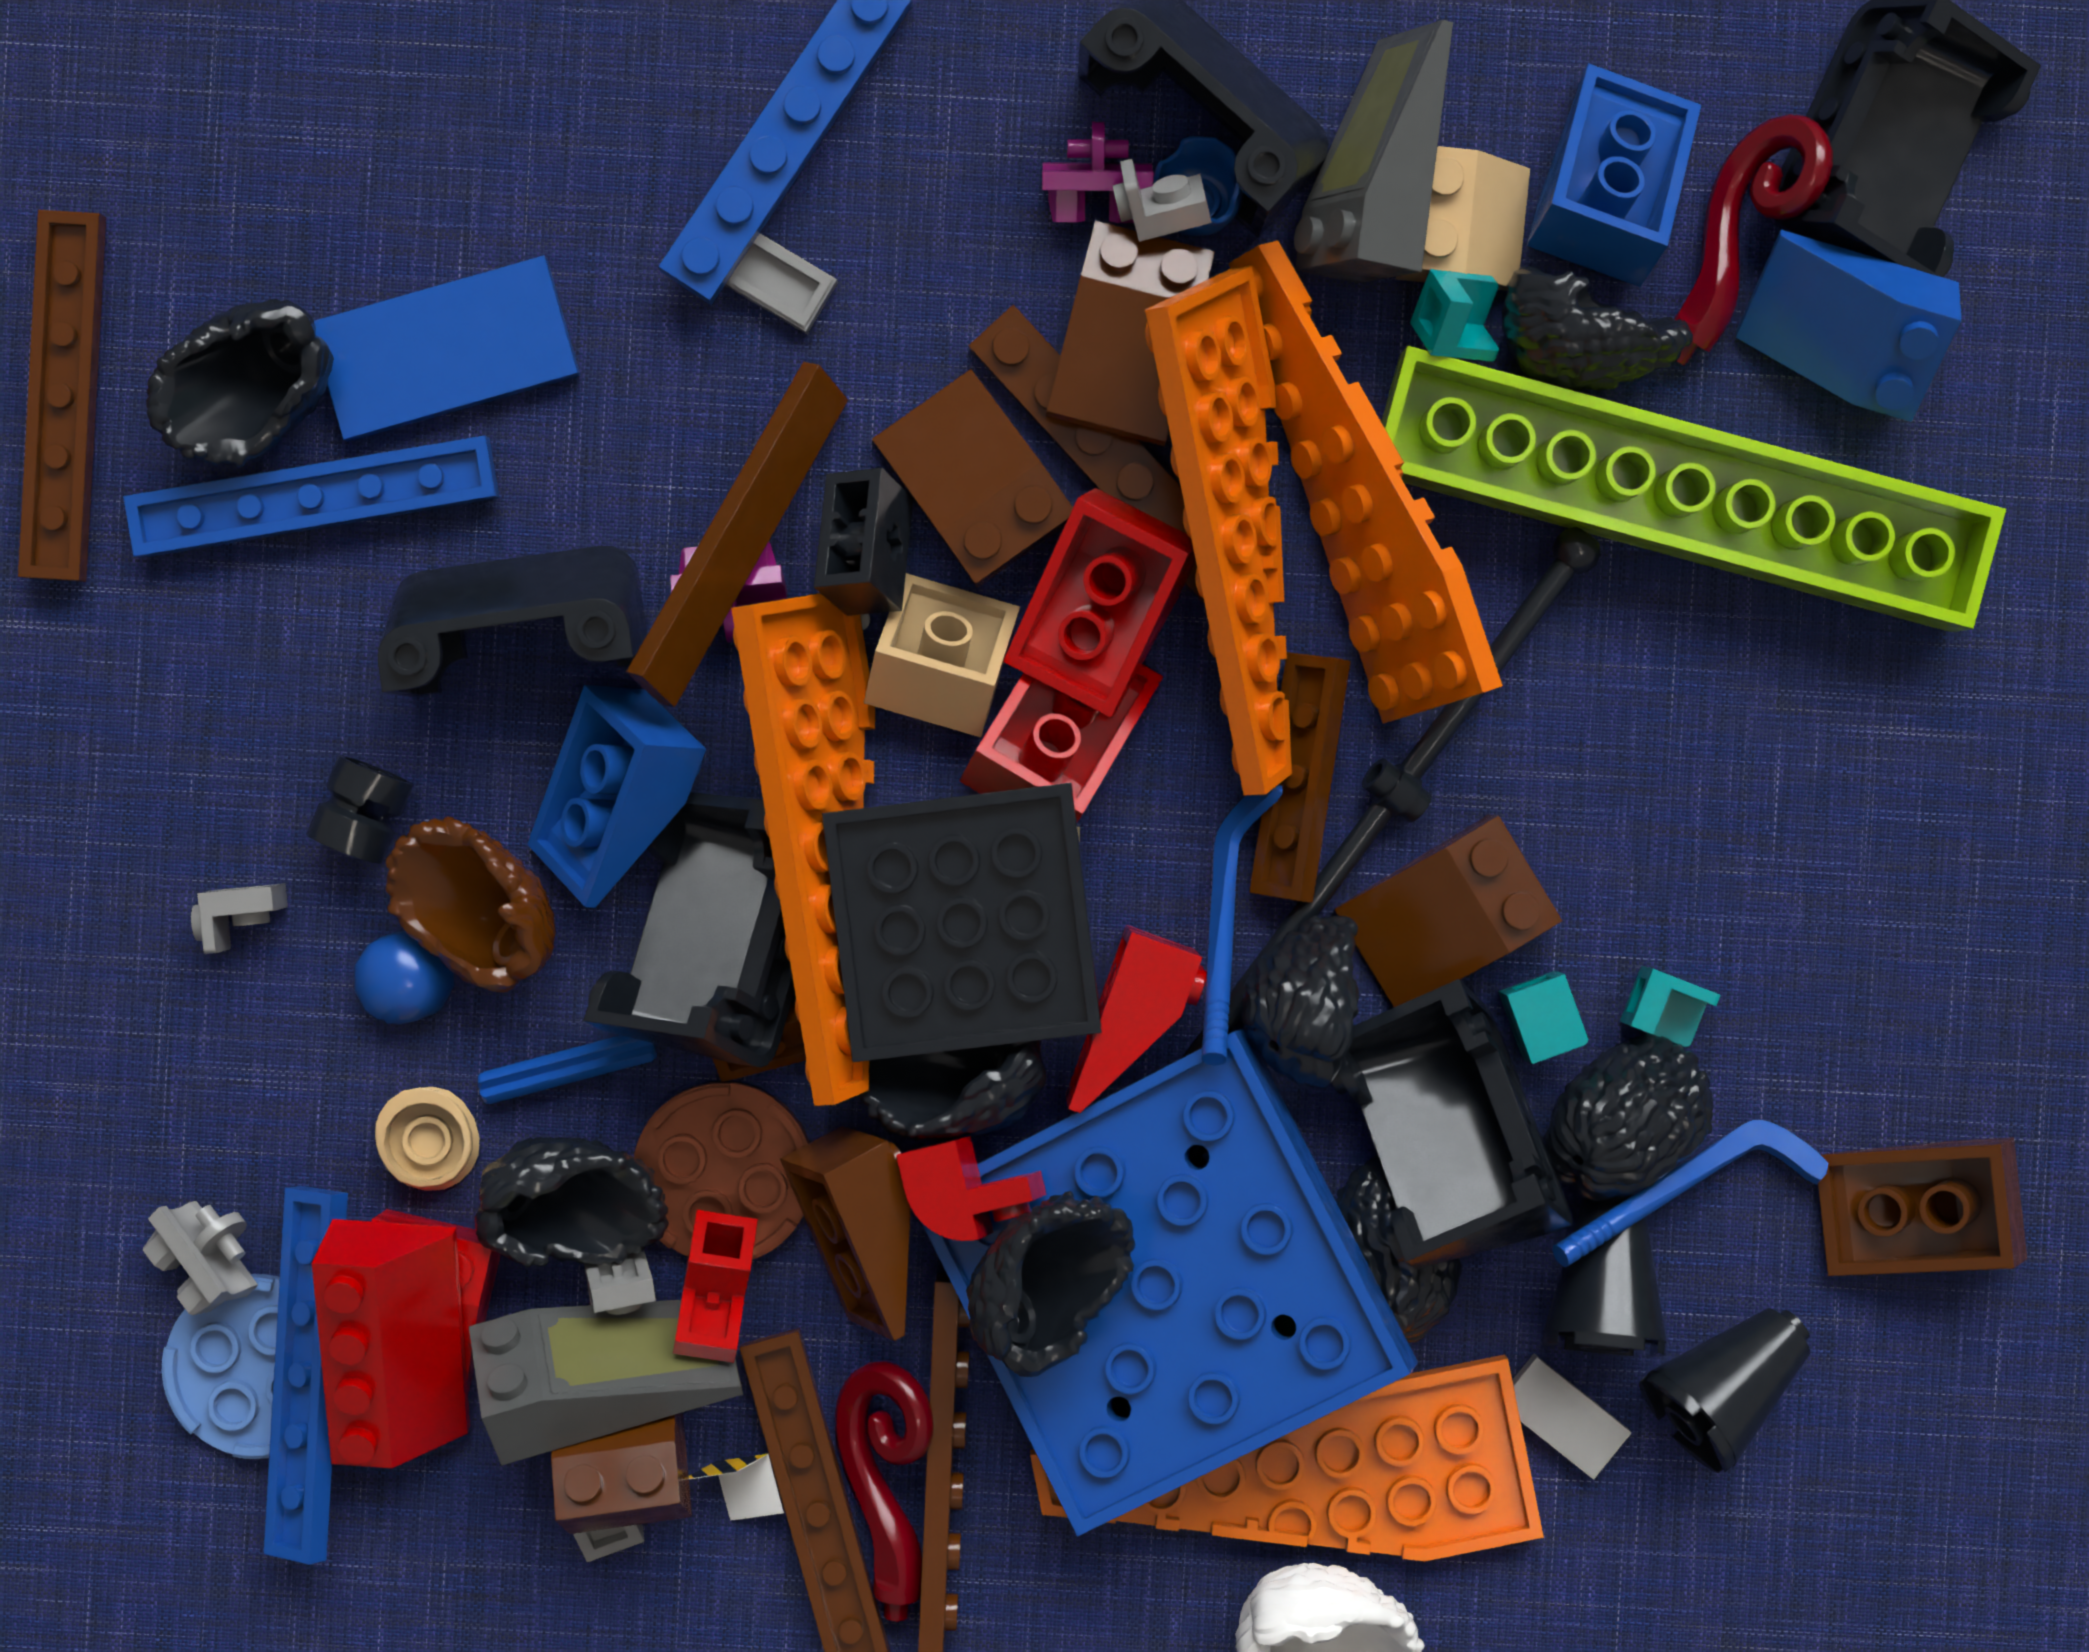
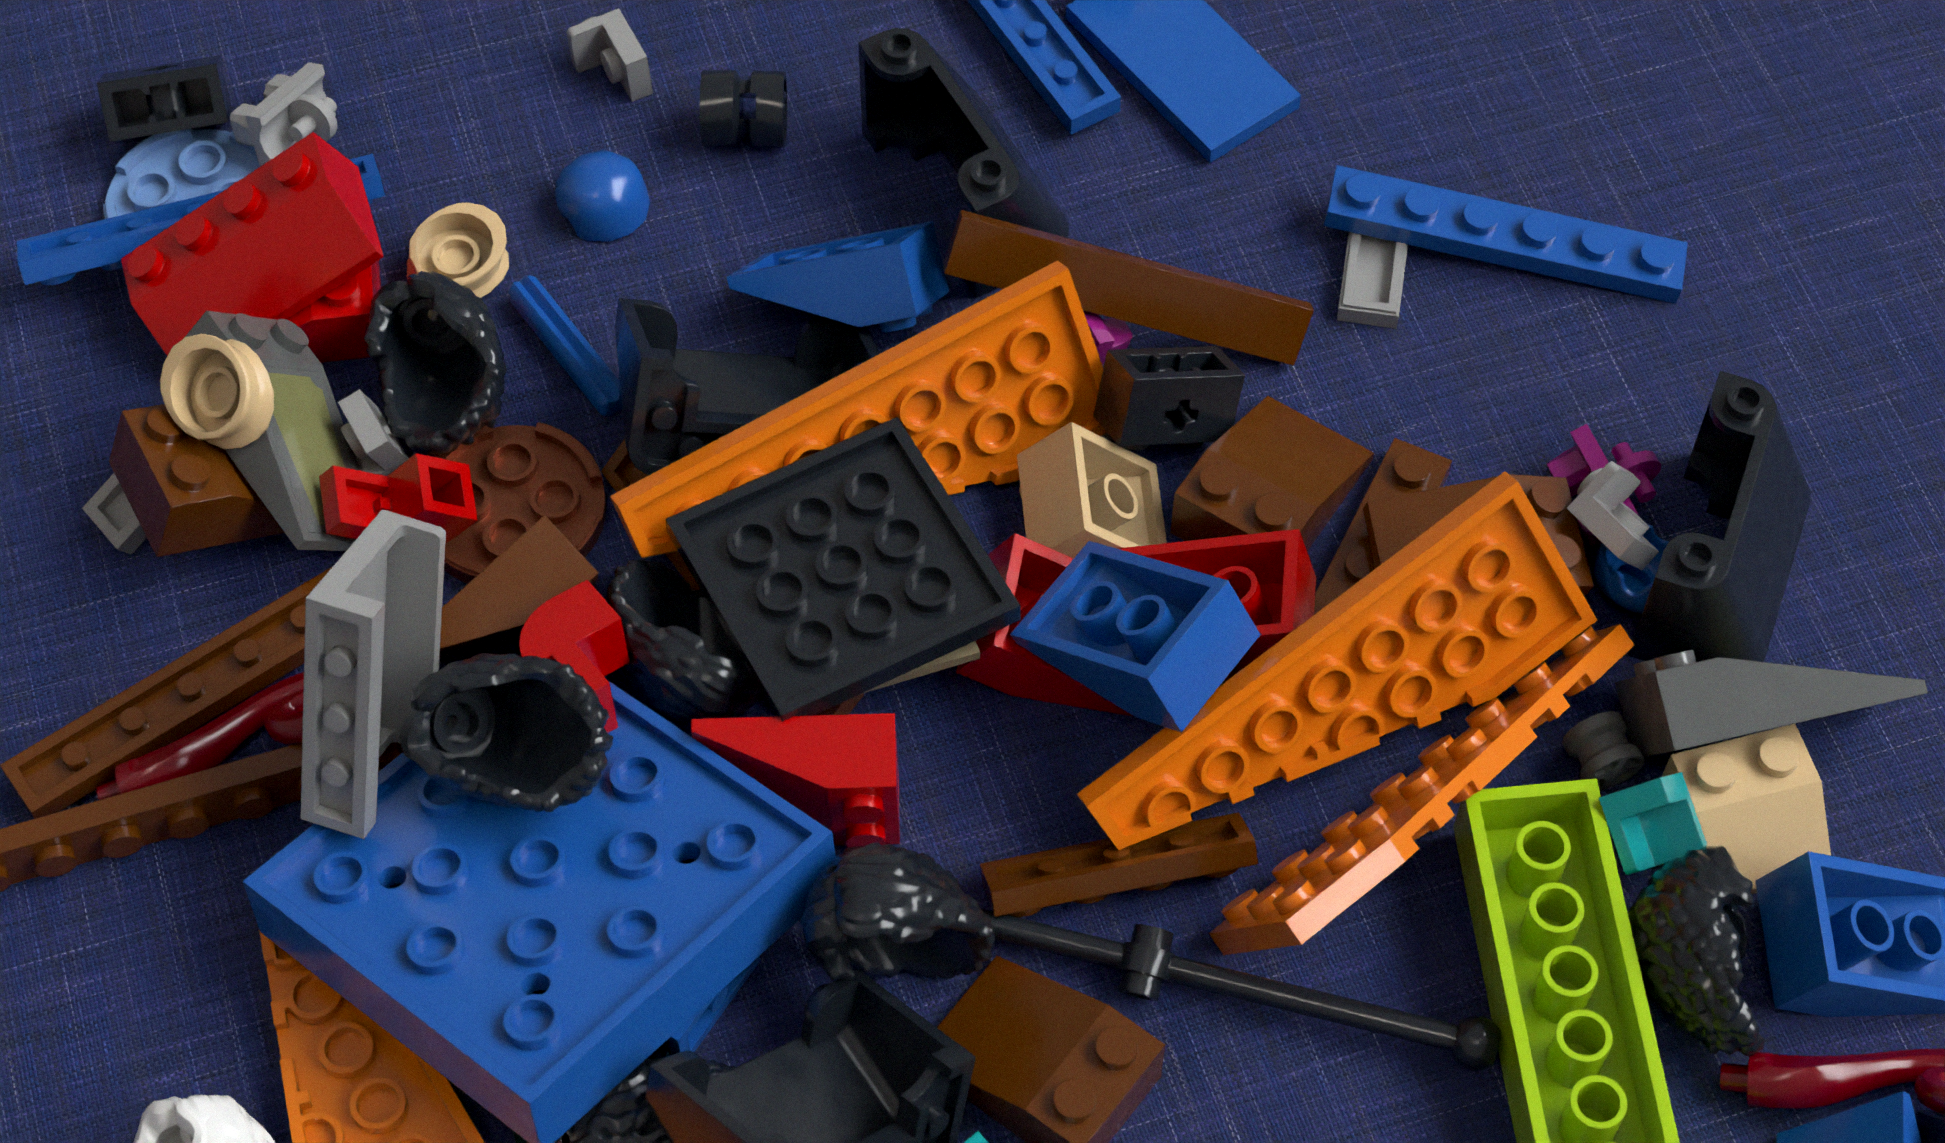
camera: 70 degrees right, 30 degrees down
(135, 1368) = (164, 98): none -> black brick
(470, 903) = (693, 203): reddish brown hair -> none
(574, 1431) = (217, 390): none -> tan piece
(746, 1486) = (204, 620): white sticker -> none
(921, 1365) = (366, 649): none -> light grey panel
(1133, 692) = (1140, 632): none -> blue slope
(1222, 922) = (896, 817): blue piece -> none
(1356, 313) = (1603, 749): none -> dark grey wheel

